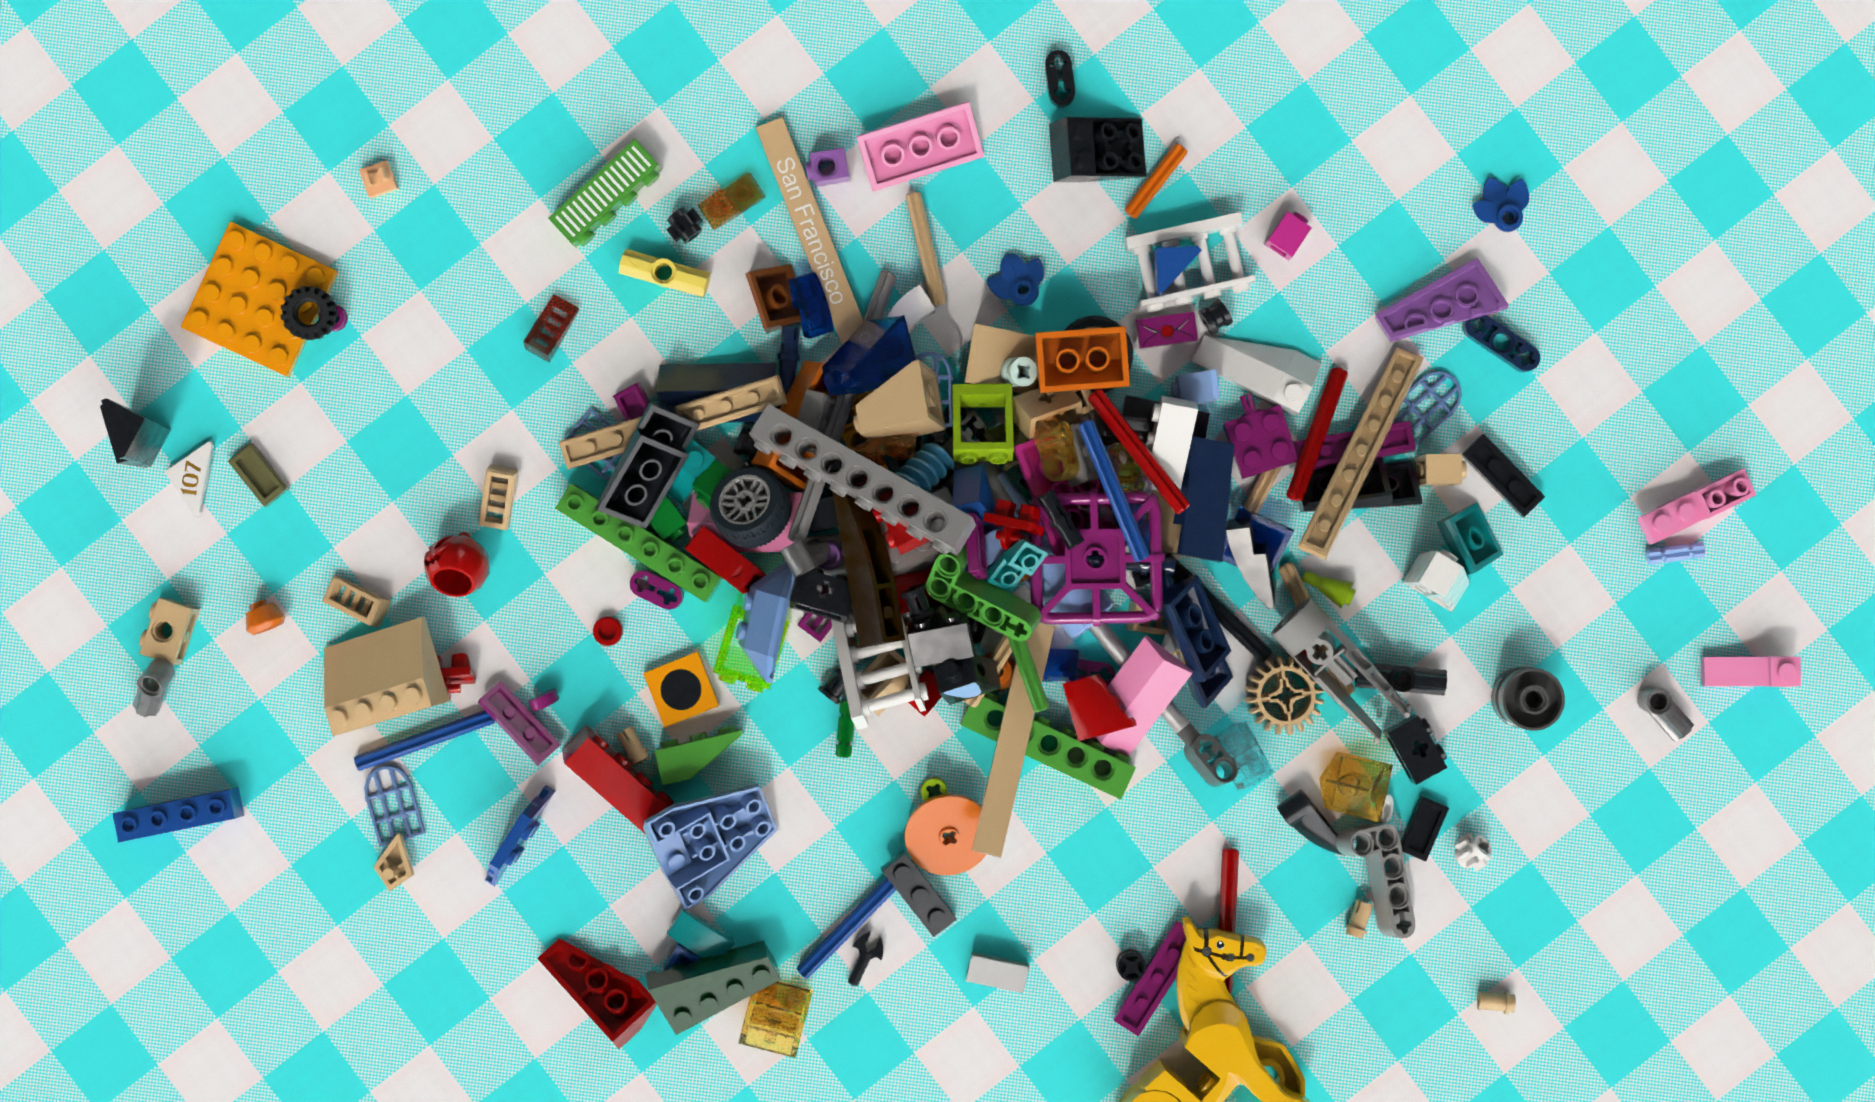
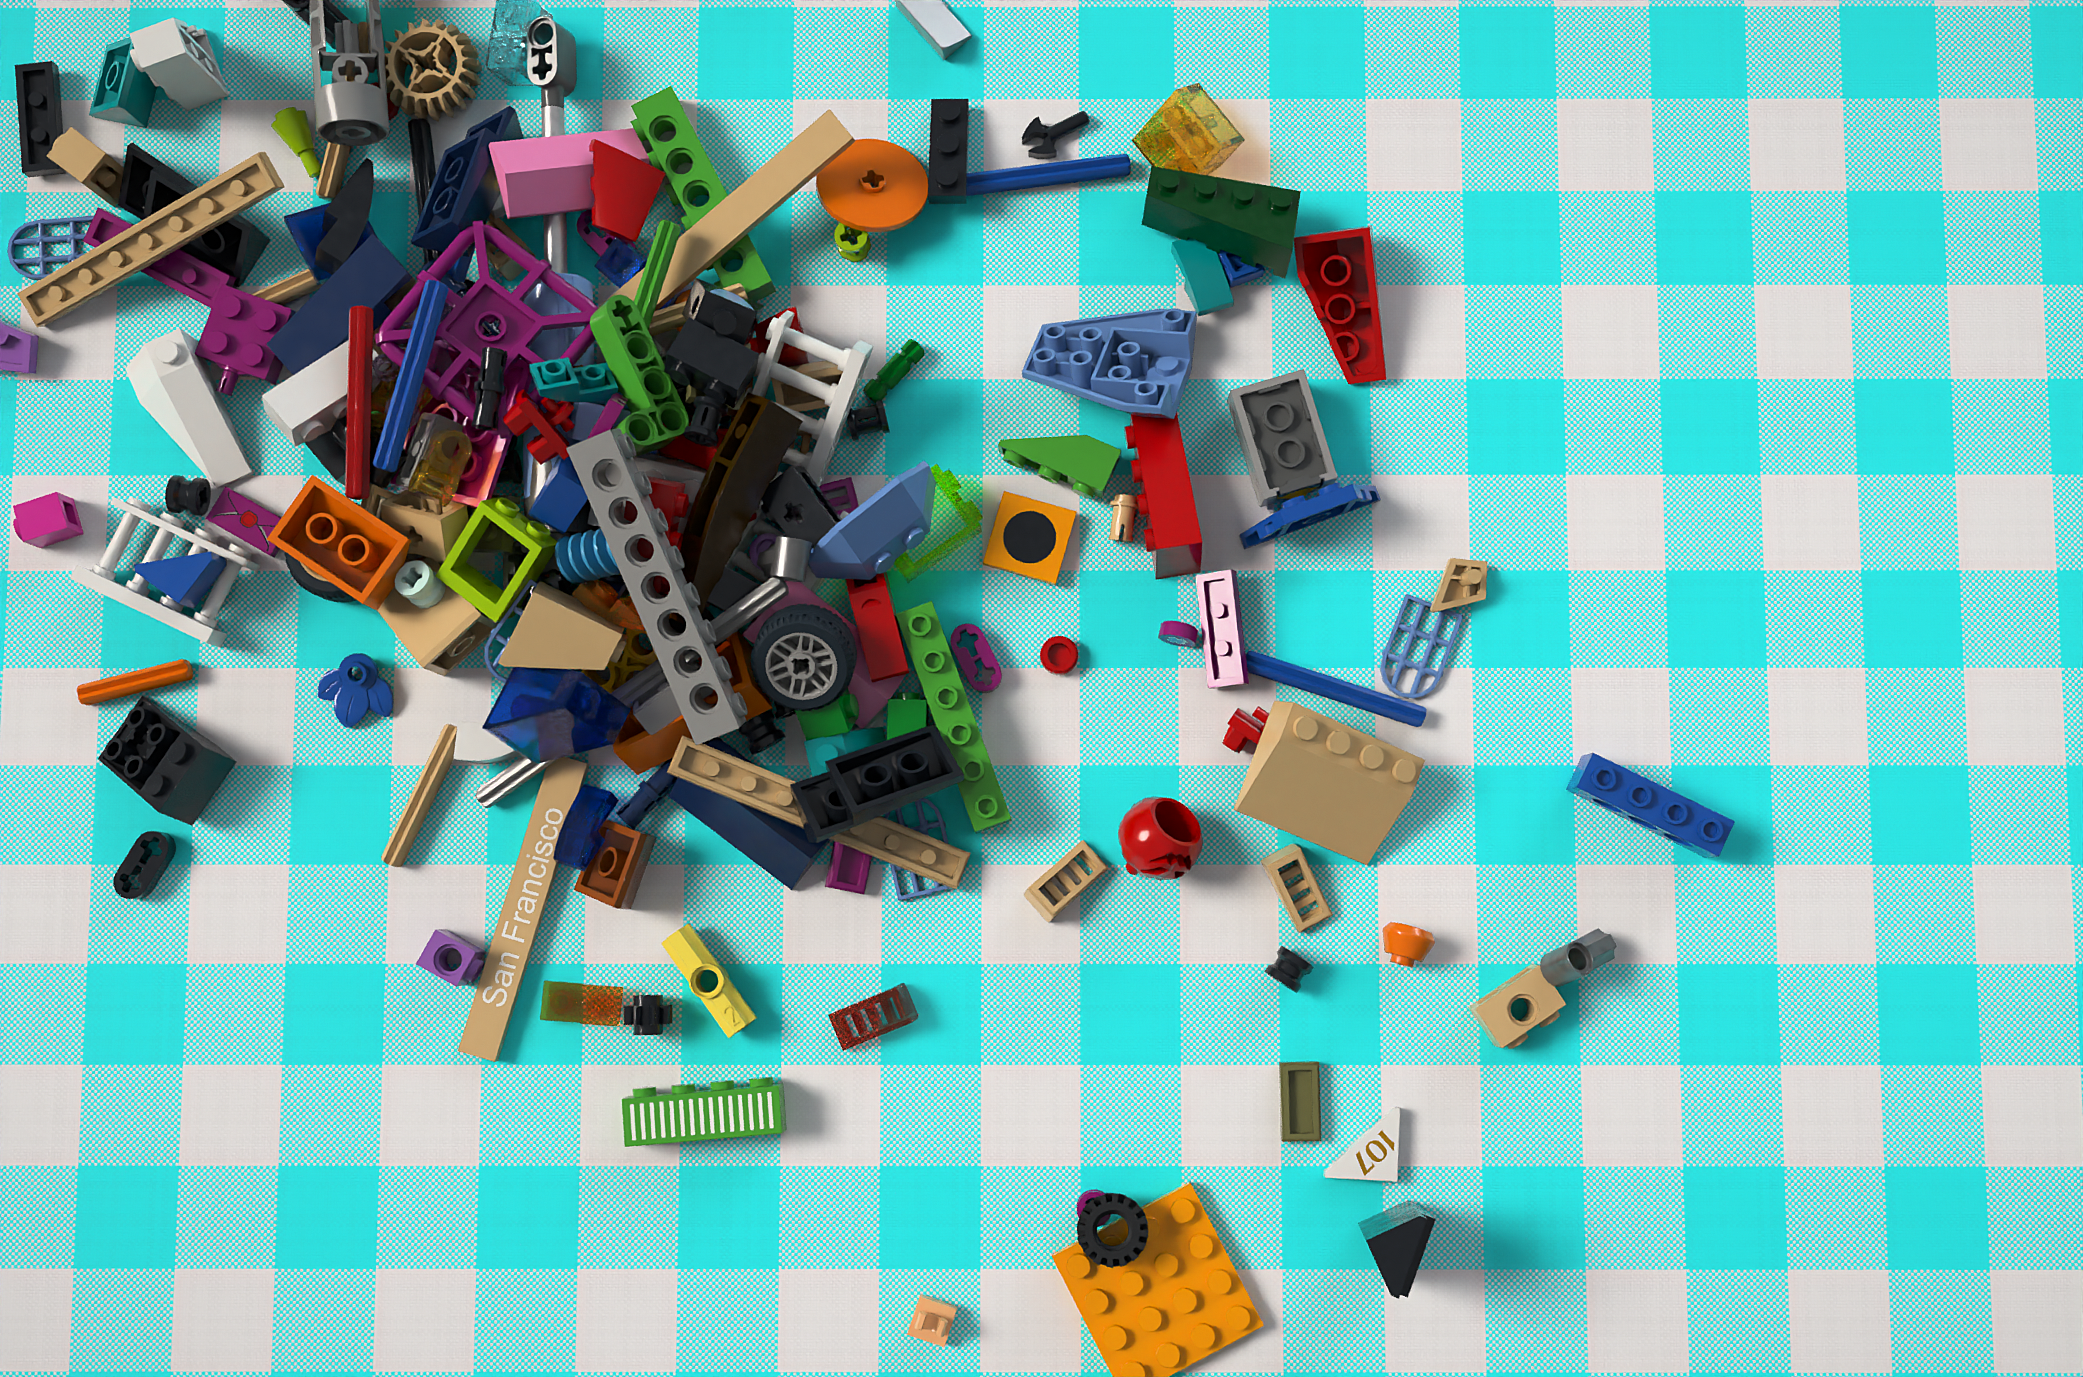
camera: 140 degrees left, 5 degrees down
(322, 547) = (1289, 969): none -> black wheel
(570, 869) = (1281, 438): none -> dark grey piece
(920, 146) = (341, 906): bright pink slope -> none
(1197, 387) = (258, 433): light blue slope -> none
(1317, 434) = (182, 296): red axle -> none

